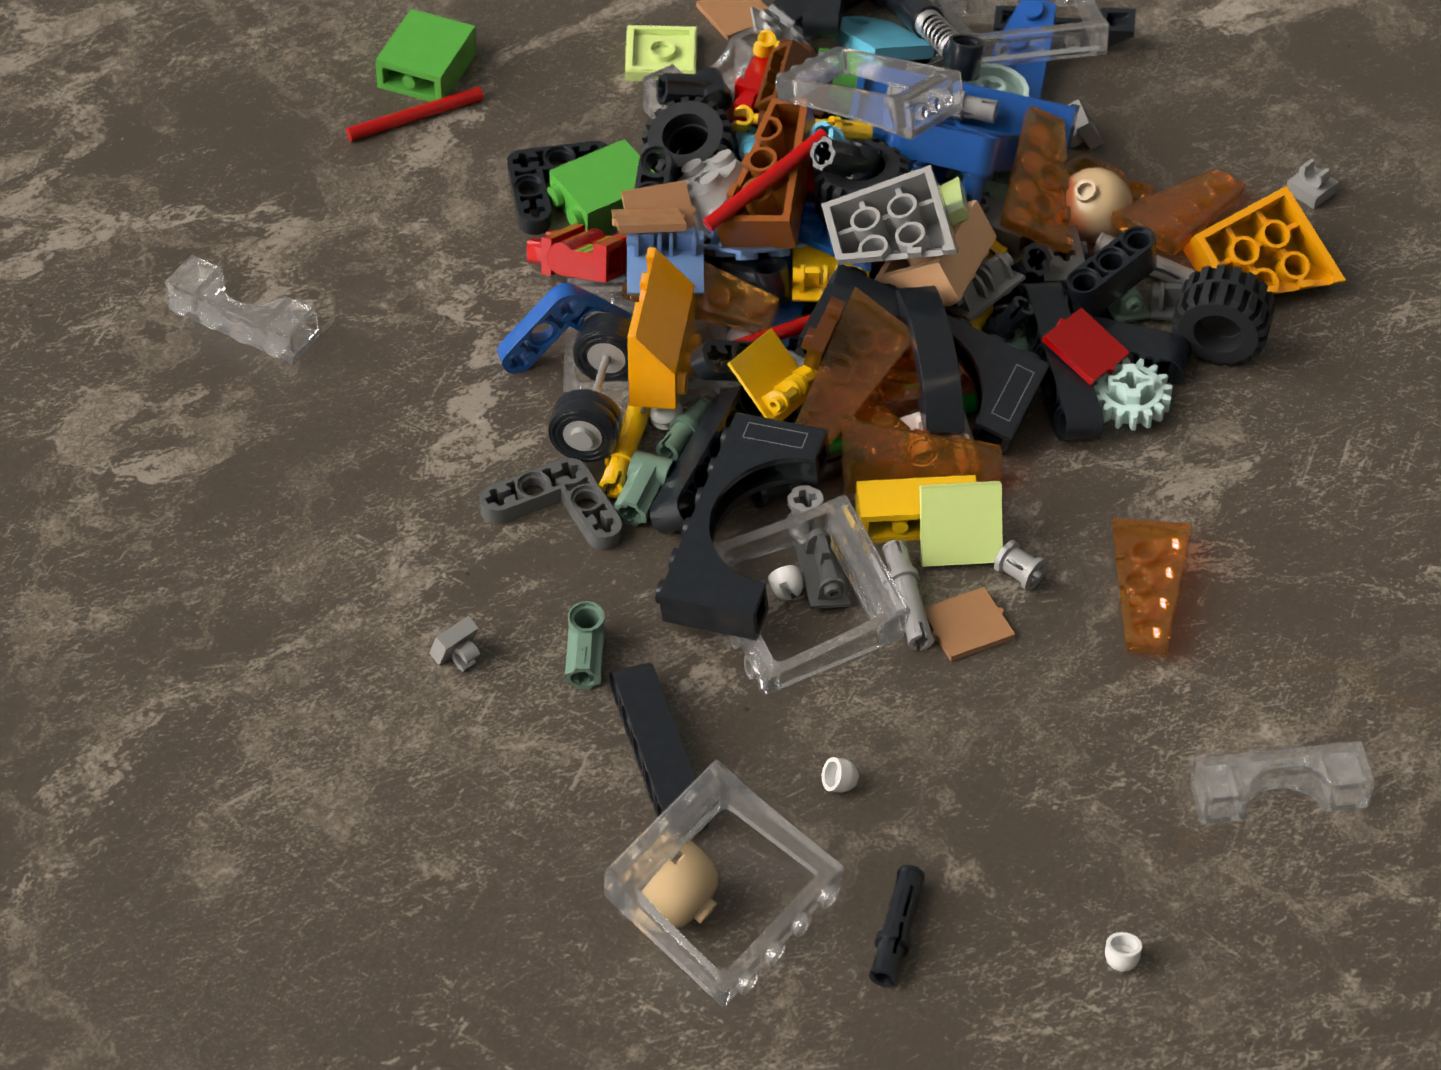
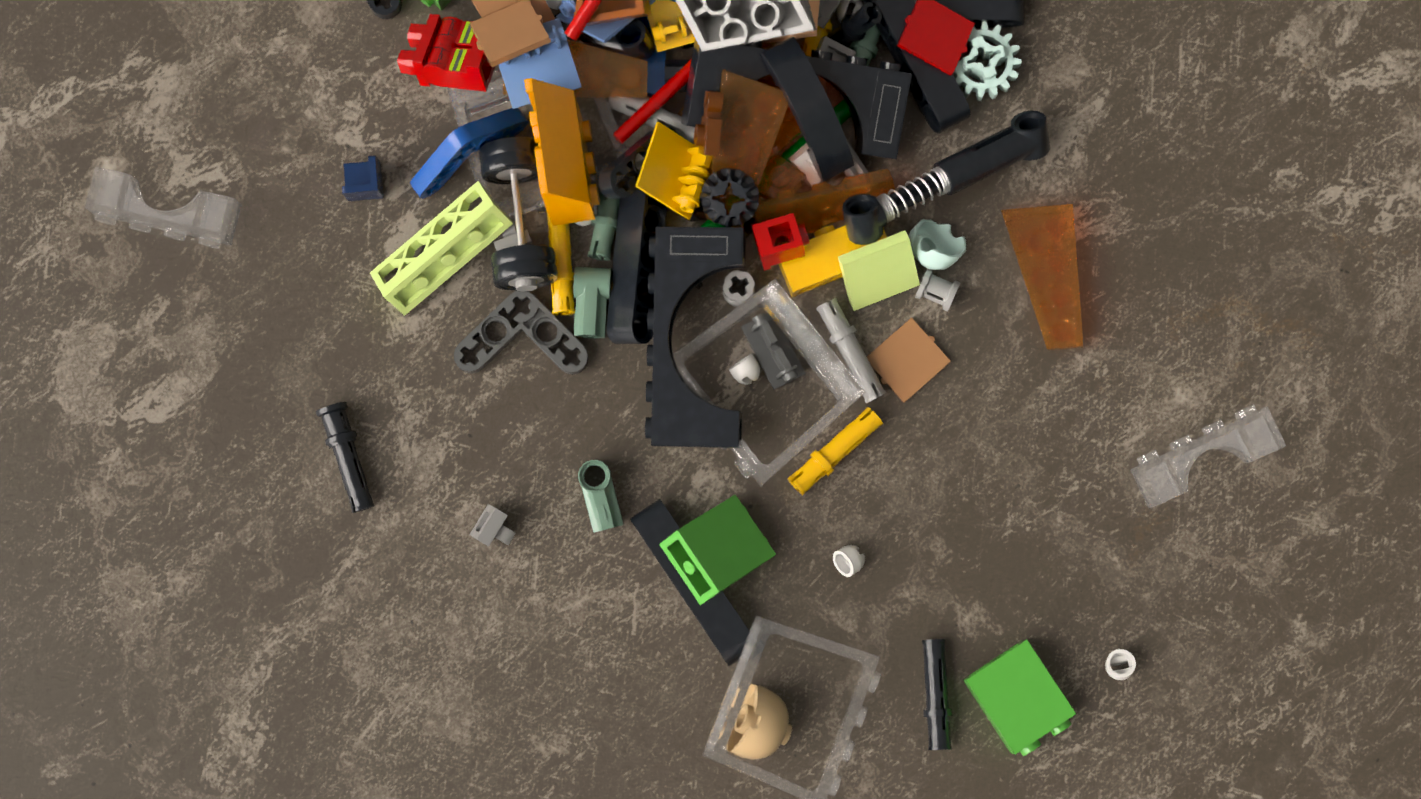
camera: 15 degrees left, 35 degrees up
(330, 536) = (341, 439): none -> black pin
(451, 341) = (363, 180): none -> dark blue panel
(503, 404) = (442, 252): none -> yellowish green fence
(695, 709) = (717, 549): none -> bright green brick
(830, 414) = (742, 186): none -> black gear
(844, 680) = (830, 455): none -> yellow pin
(862, 460) = (771, 232): none -> red brick
(993, 949) = (1020, 698): none -> bright green brick
(1027, 526) = (935, 245): none -> light aqua hair
(1062, 459) = (1023, 140): none -> black piece

